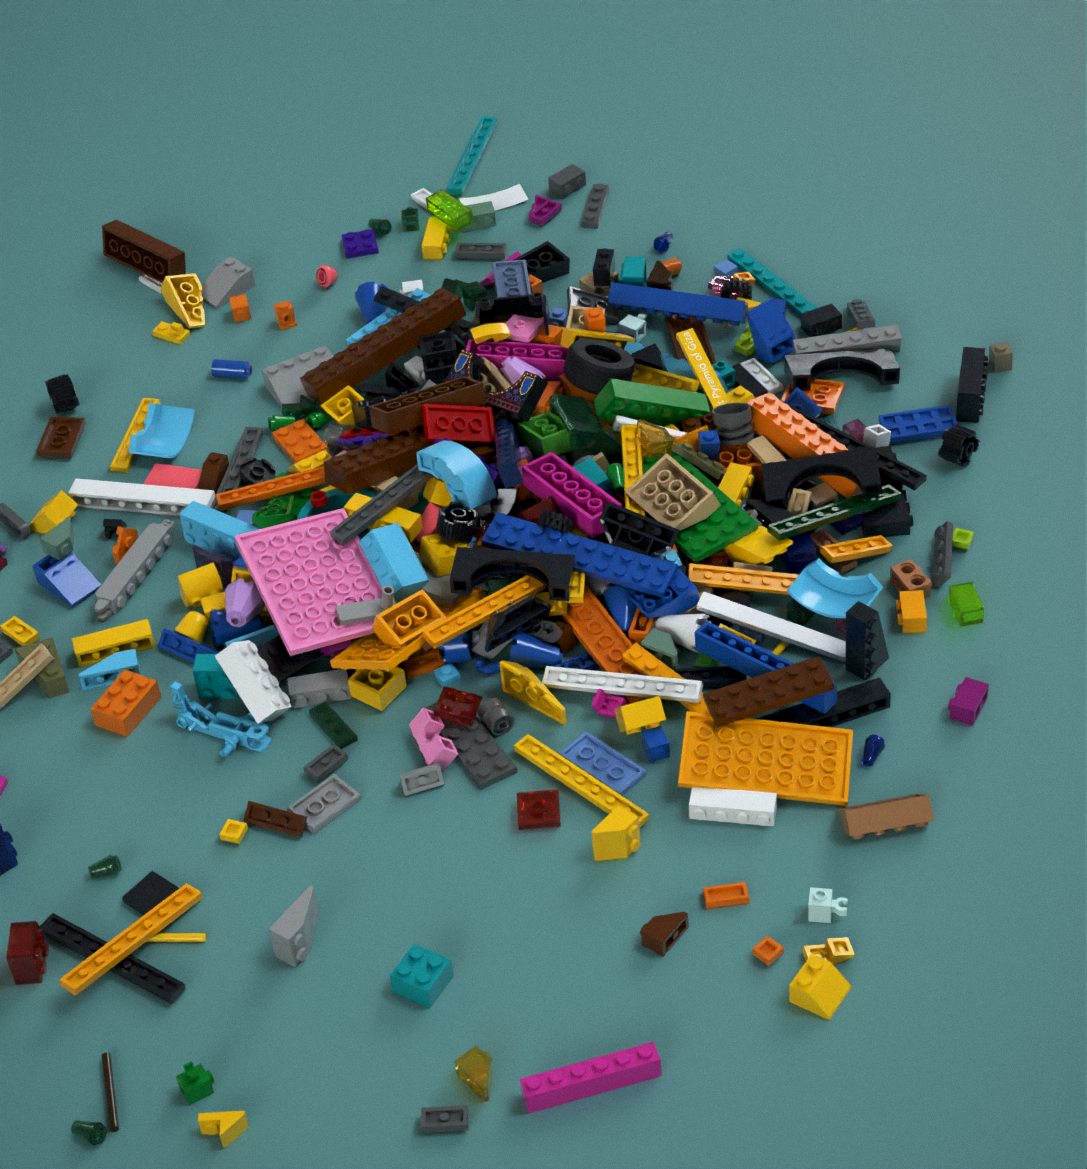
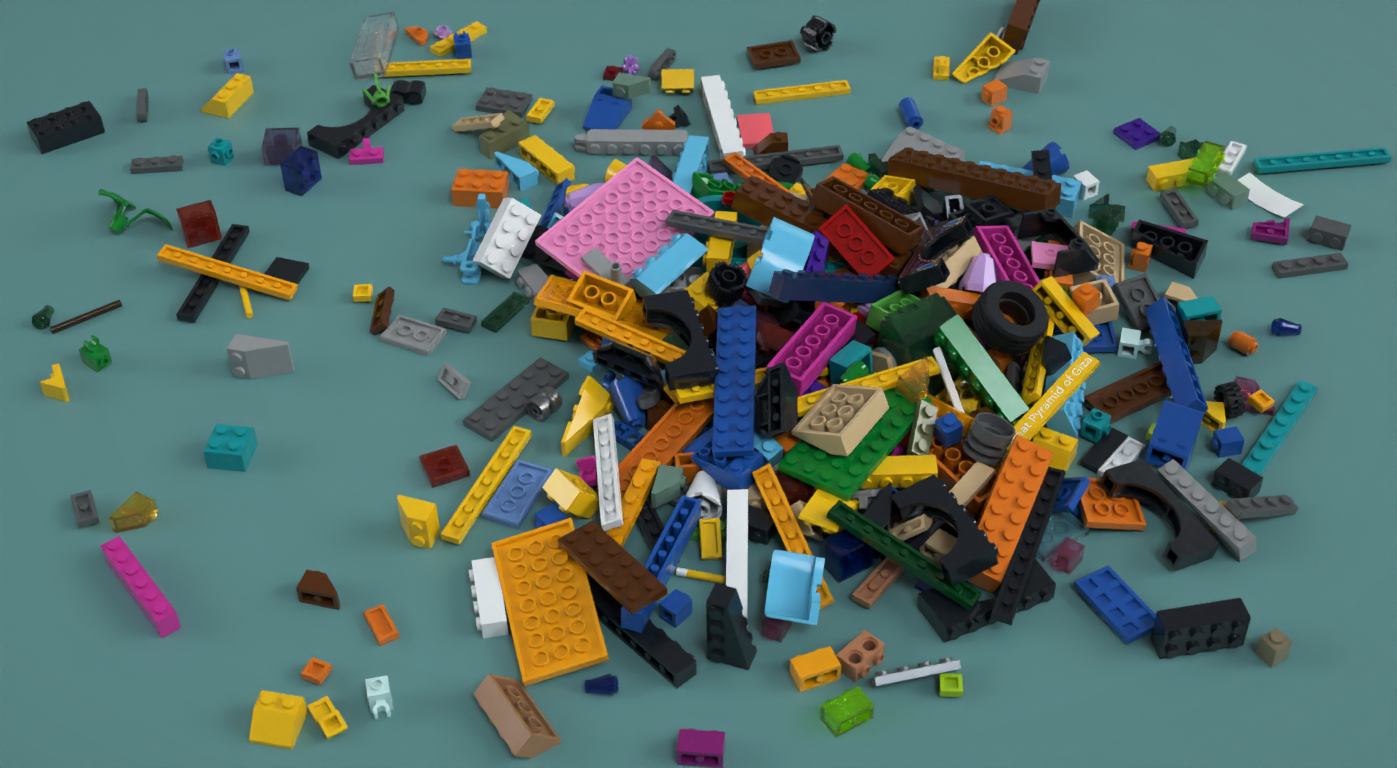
camera: 65 degrees right, 0 degrees up
(105, 867) = (306, 239): clear green cone -> none
(164, 431) = (804, 105): medium azure panel -> none
(326, 276) = (1072, 126): coral cone -> none
(426, 731) = (499, 372): bright pink arch -> none
(458, 705) = (542, 372): clear red plate -> none
(497, 331) = (1021, 234): yellow slope -> none
(511, 278) = (1122, 234): sand blue tile -> none
(555, 521) = (761, 348): black tyre -> none
(604, 267) = (1190, 287): black brick -> none
(726, 268) = (1278, 386): medium blue tile -> none
(856, 549) = (879, 596): light orange plate -> none
(876, 436) = (1063, 570): white brick -> none
(958, 445) = (1091, 641): black brick -> none

